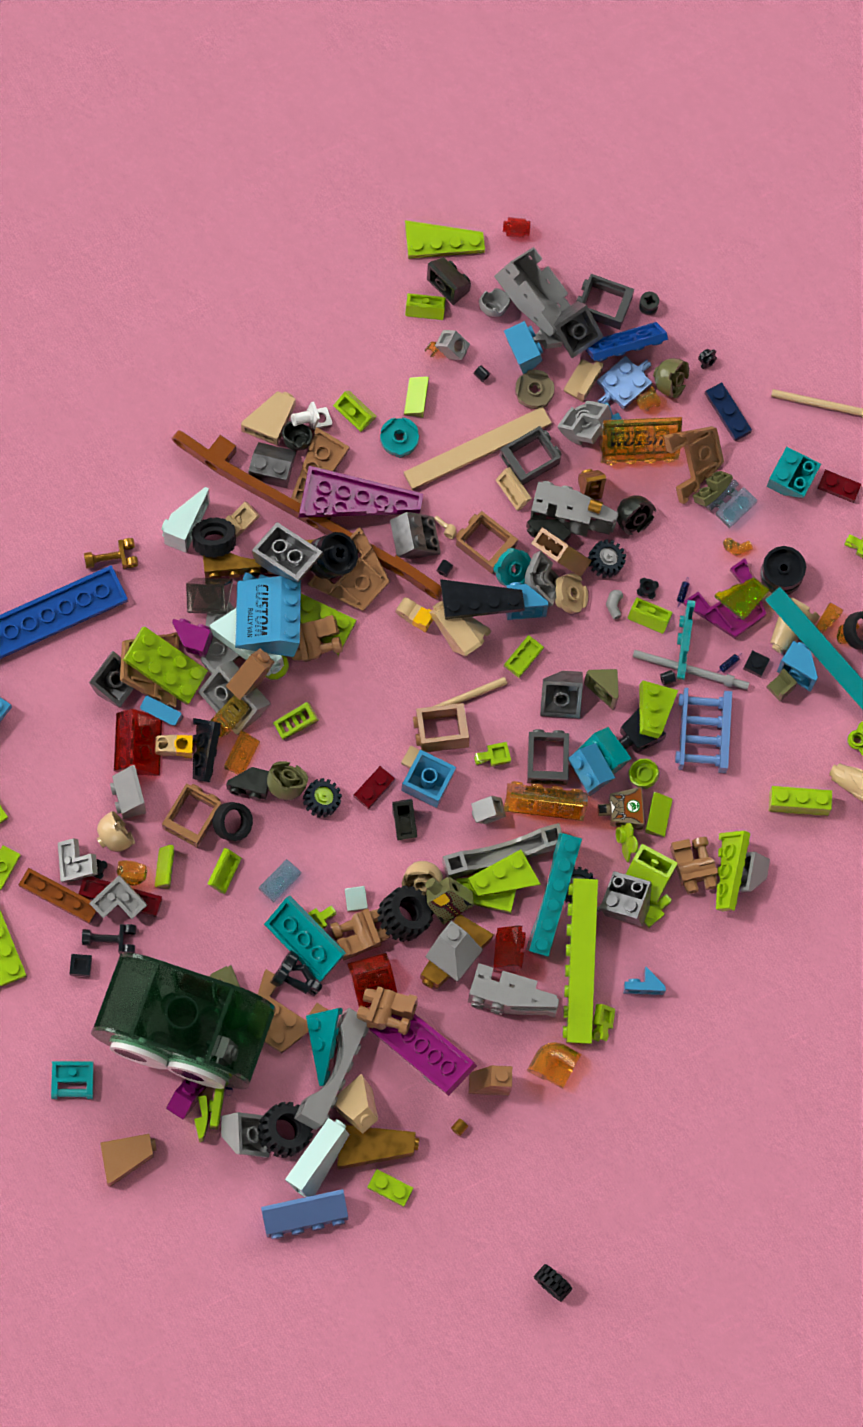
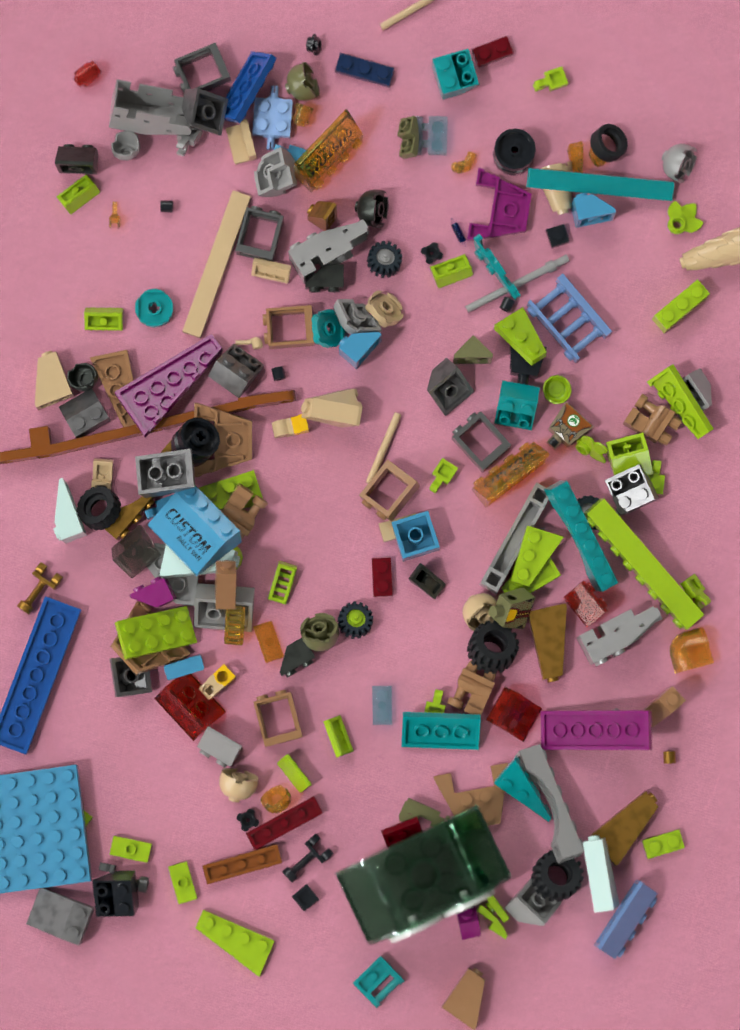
camera: 40 degrees left, 10 degrees up
(72, 864) = (230, 835): light grey plate -> none
(120, 894) = (286, 823): light grey plate -> none
(206, 748) = (237, 657): black wing -> none
(219, 824) = (299, 699): black tyre -> none
(226, 1052) = (471, 865): light grey plate -> none
(288, 965) = (446, 761): black piece -> none
(312, 417) = (80, 353): white bracket -> none
(356, 898) = (446, 668): light aqua slope -> none
(357, 1104) = (590, 810): tan slope -> none
(384, 1005) = (542, 726): medium nougat hips -> none
(416, 396) = (137, 267): slope -> none
(438, 240) = (41, 135): lime wing -> none
(452, 344) = (127, 205): light grey brick -> none
(454, 951) = (552, 642): light grey slope -> none
(472, 599) = (327, 380): black wing -> none
(488, 810) = (477, 518): light grey brick -> none
(523, 346) = (179, 159): dark azure slope -> none
(523, 656) = (394, 384): lime plate -> none
(537, 399) = (215, 171): dark tan plate -> none
(561, 552) = (351, 286): medium nougat slope -> none
(591, 768) = (521, 422): dark azure slope -> none
(595, 506) = (346, 231): pearl gold piece -> none
(612, 602) = (417, 286): light grey arm -> none
(647, 307) = (234, 46): pearl dark grey wheel -> none
(651, 985) = (702, 534): dark azure slope -> none
(658, 815) = (593, 408): lime slope -> none
(702, 455) = (381, 121): medium nougat wing -> none
(728, 663) = (538, 253): clear blue piece -> none
(743, 597) = (506, 197): clear neon green wing -> none
(782, 685) = (590, 235): olive panel -> none

